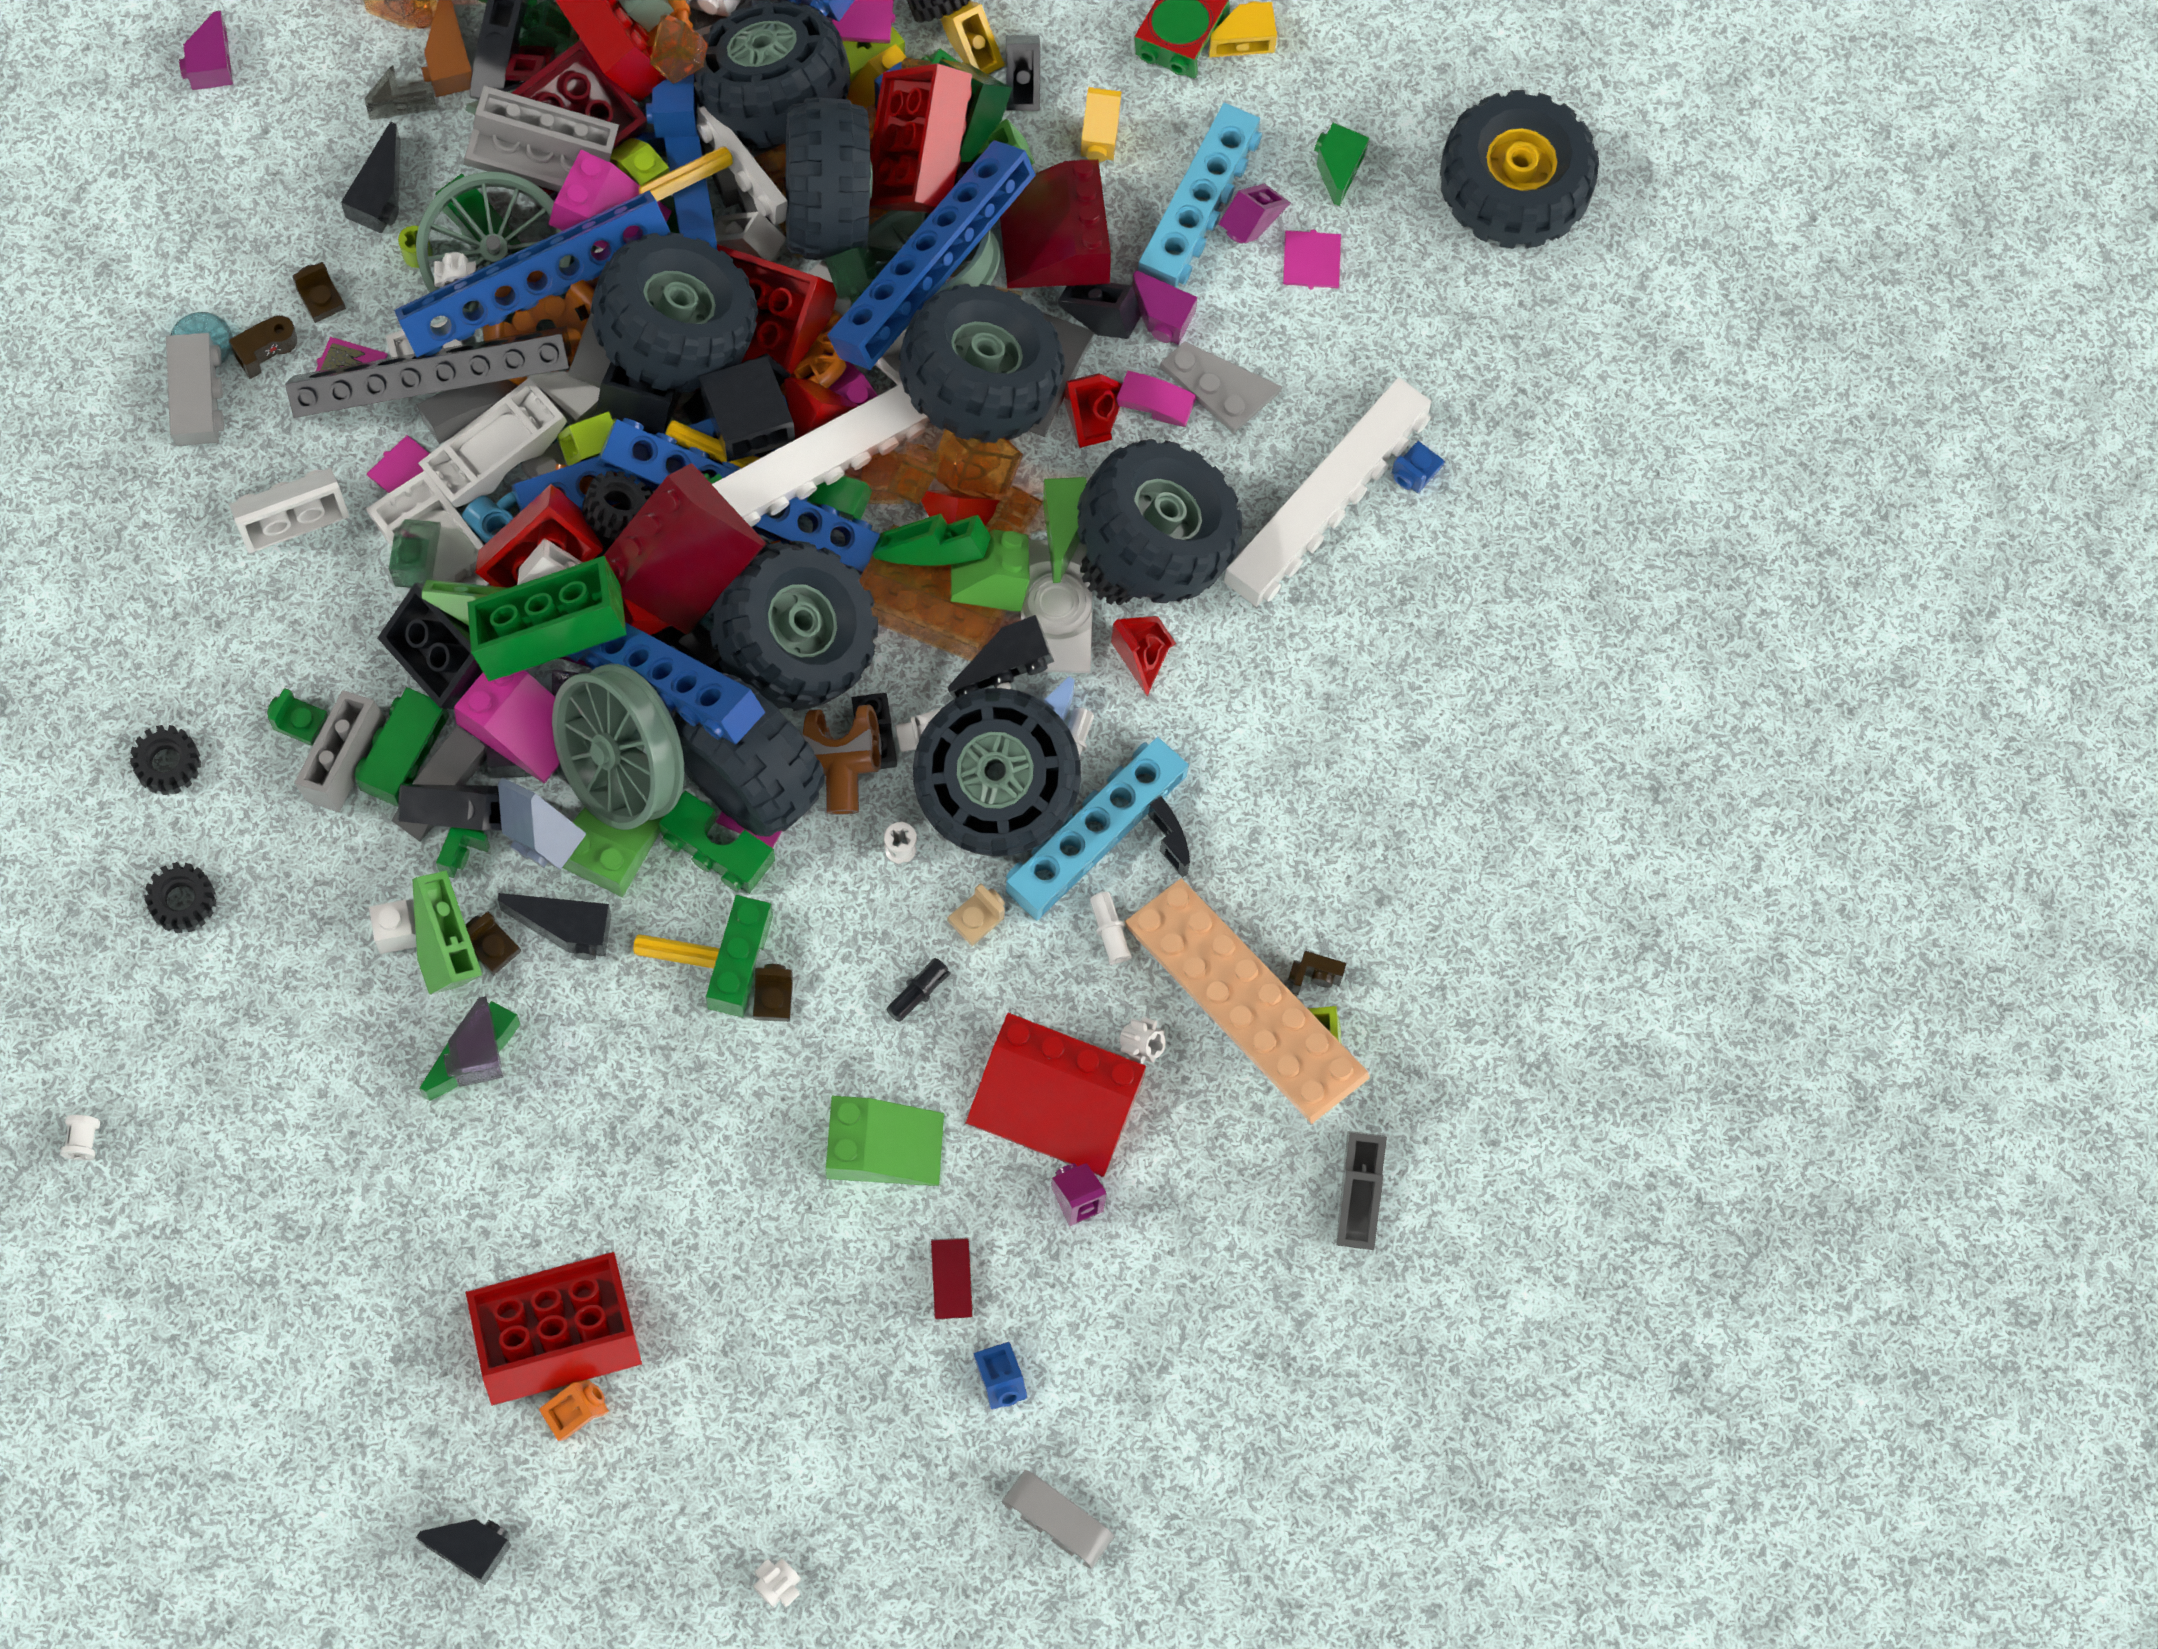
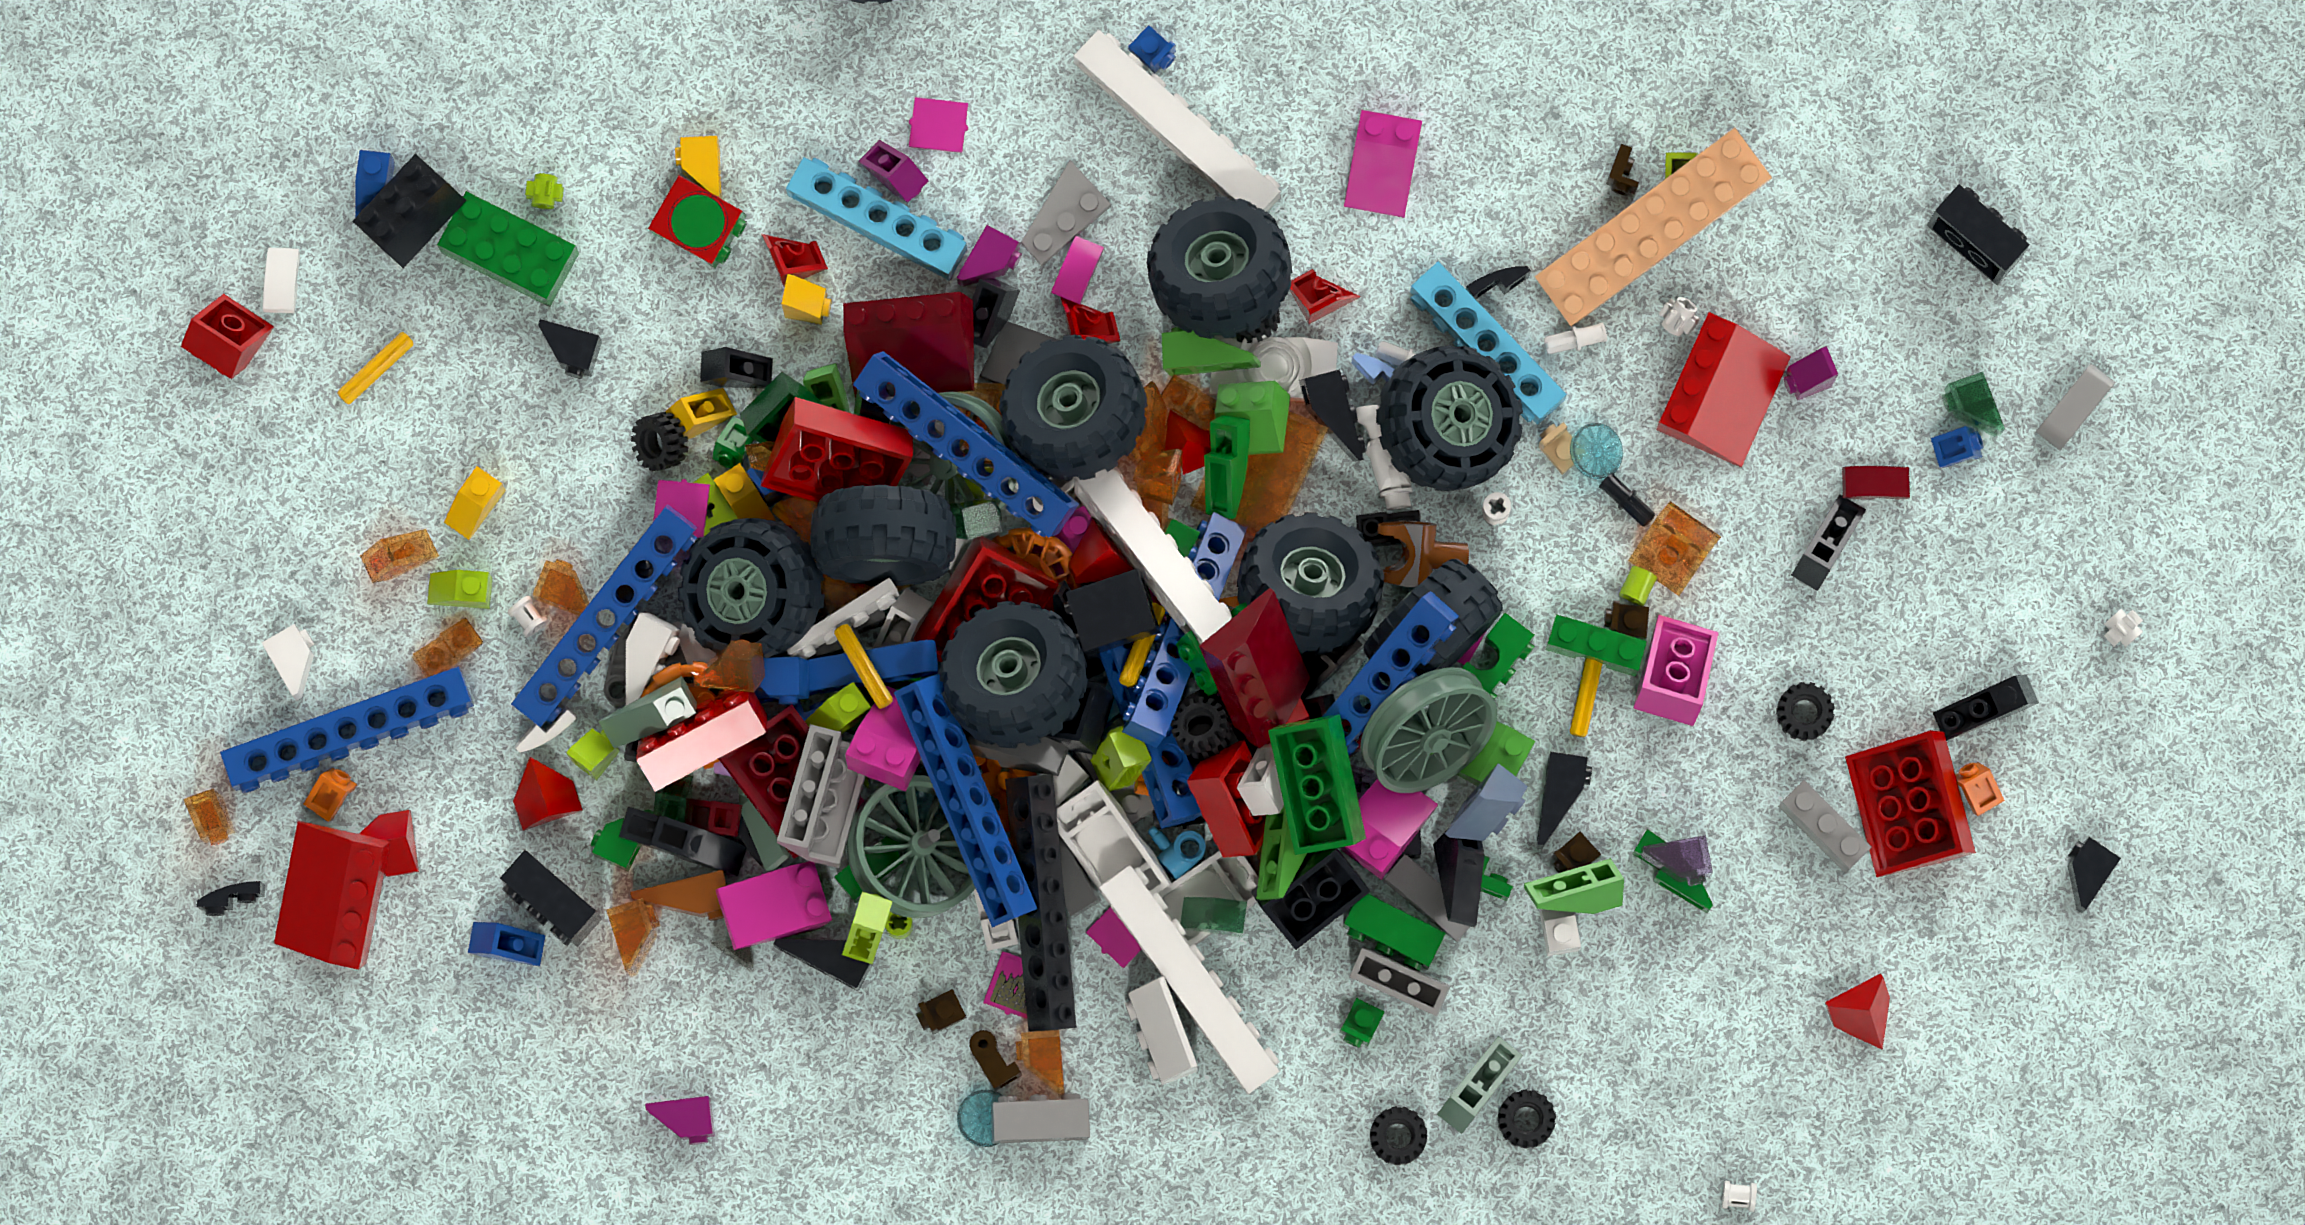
camera: 80 degrees left, 10 degrees up
(222, 845) = (1479, 1084): none -> sand green slope
(259, 394) = (1043, 1057): none -> clear orange slope
(300, 1278) = (1862, 1011): none -> red slope
(344, 527) = (1188, 979): none -> white brick
(400, 196) = (867, 927): none -> lime brick
(429, 117) = (774, 905): none -> dark pink slope
(452, 268) = (953, 875): white gear -> none
(523, 1223) = (1824, 826): none -> light grey brick
(662, 1178) = (1813, 694): none -> black tyre
(675, 1418) = (1986, 706): none -> black slope
(713, 1049) = (1676, 670): none -> dark pink slope
(814, 1004) = (1638, 585): none -> lime piece
(862, 1043) = (1674, 548): none -> clear orange slope
(874, 1221) = (1828, 542): none -> black slope
(883, 1142) = (1760, 533): bright green slope -> none
(975, 953) = (1596, 450): none -> clear light blue wheel
(1056, 1391) = (1974, 404): none -> clear green slope
(1148, 118) = (794, 257): none -> red slope
(1267, 1387) = (1978, 233): none -> black brick
(1304, 709) = (1383, 163): none -> dark pink slope
(1339, 159) = (843, 91): green slope -> none
(1361, 1190) = (1808, 149): dark grey slope -> none

